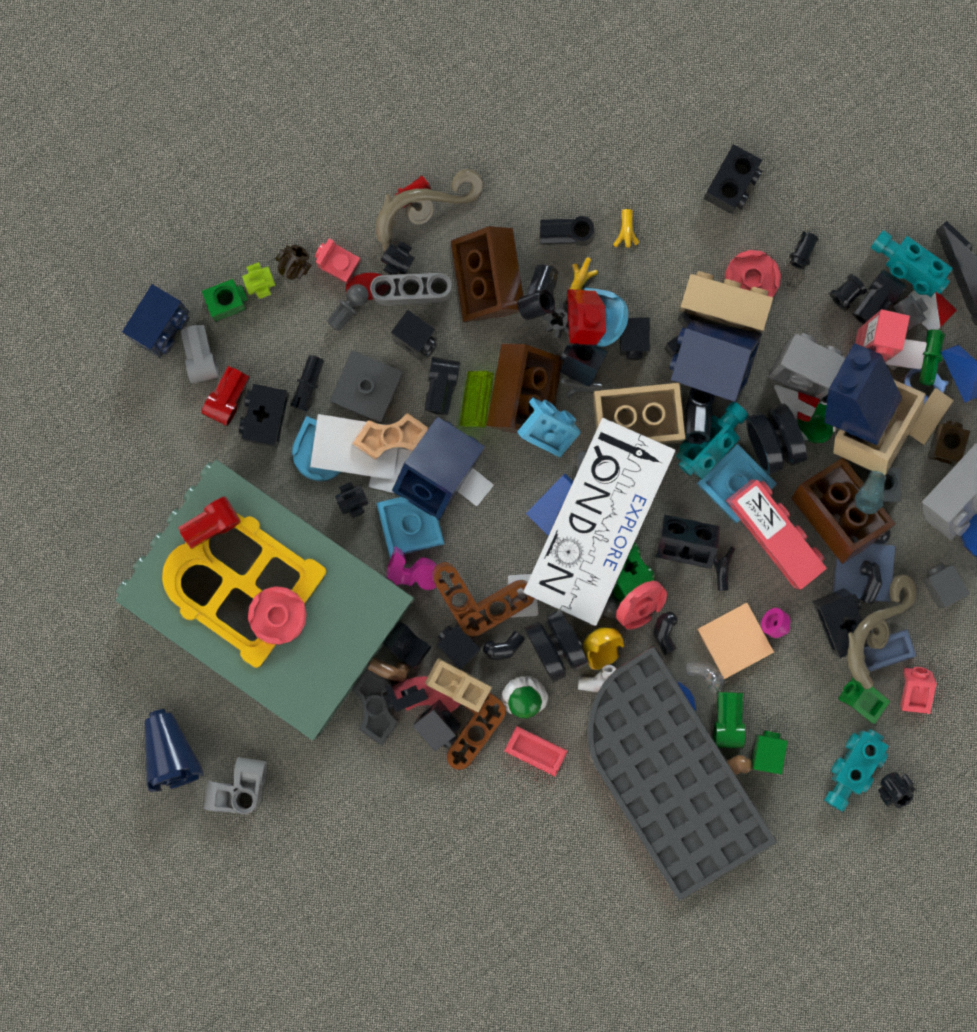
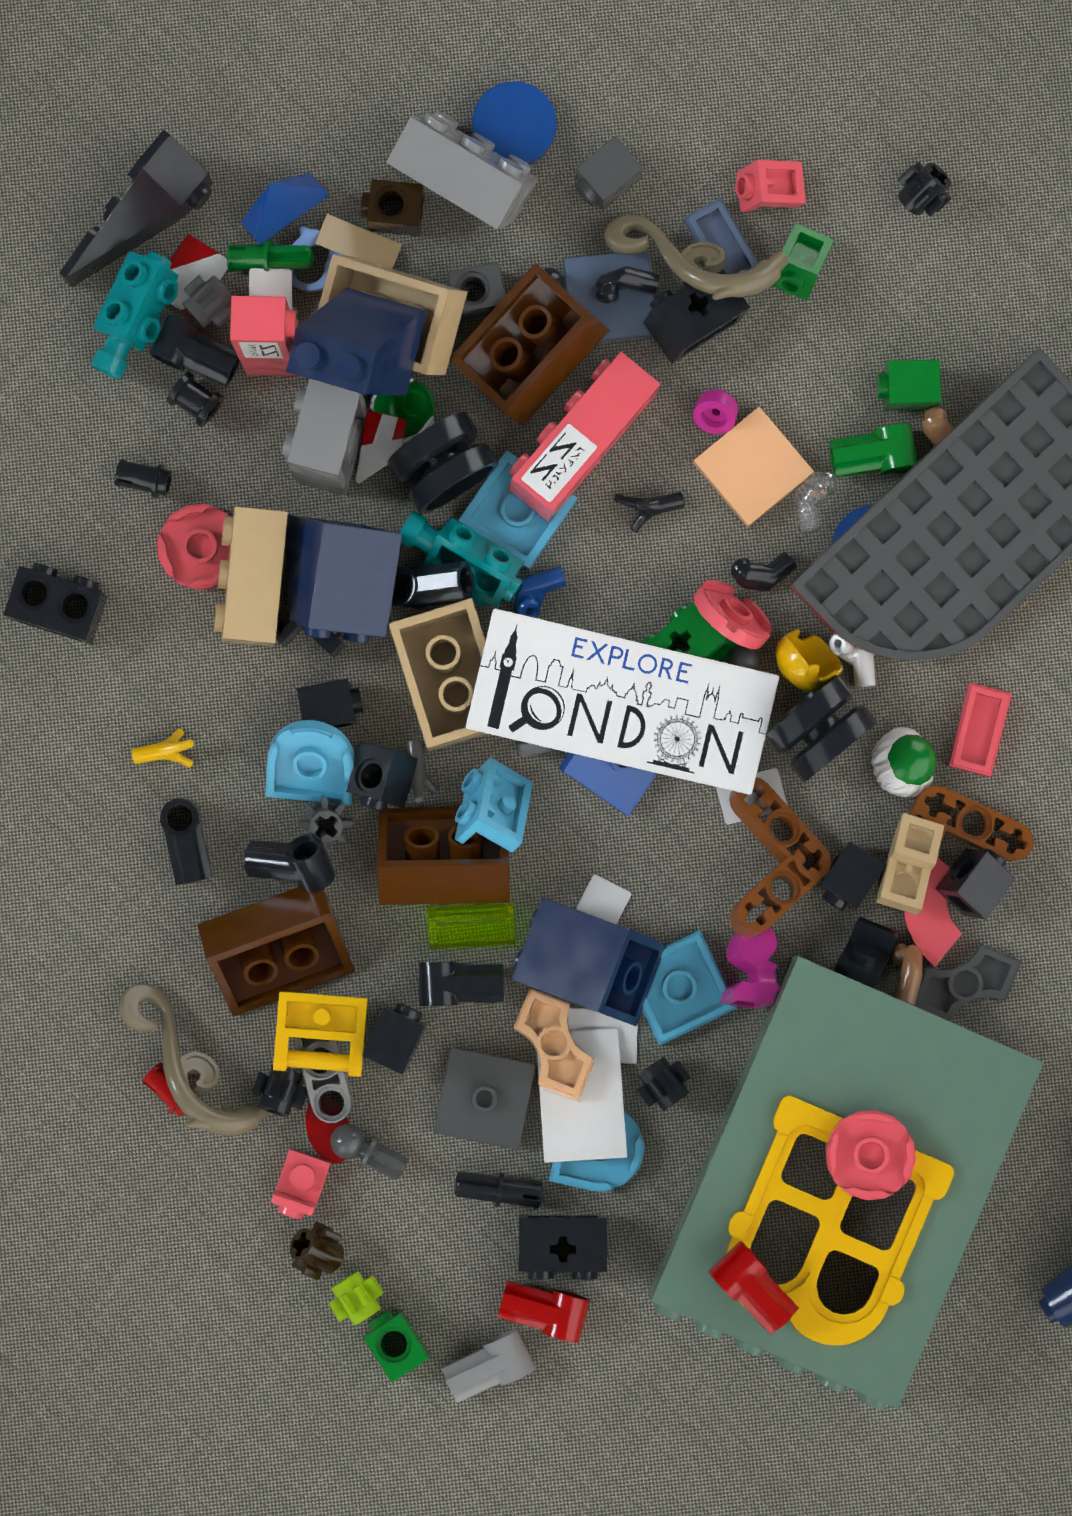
camera: 100 degrees left, 0 degrees up
(156, 321) = (454, 1441): dark blue brick -> none
(409, 697) = (944, 932): black bracket -> none
(436, 291) = (320, 1018): none -> yellow plate
(505, 650) = (840, 806): black arm -> none
(582, 275) = (253, 806): yellow bar -> none
(585, 317) = (315, 784): red slope -> none
(683, 483) = (534, 588): none -> blue arm
(687, 541) = (622, 564): black brick -> none
(856, 759) = (893, 254): teal brick -> none
(871, 494) = (500, 306): clear light blue cone -> none

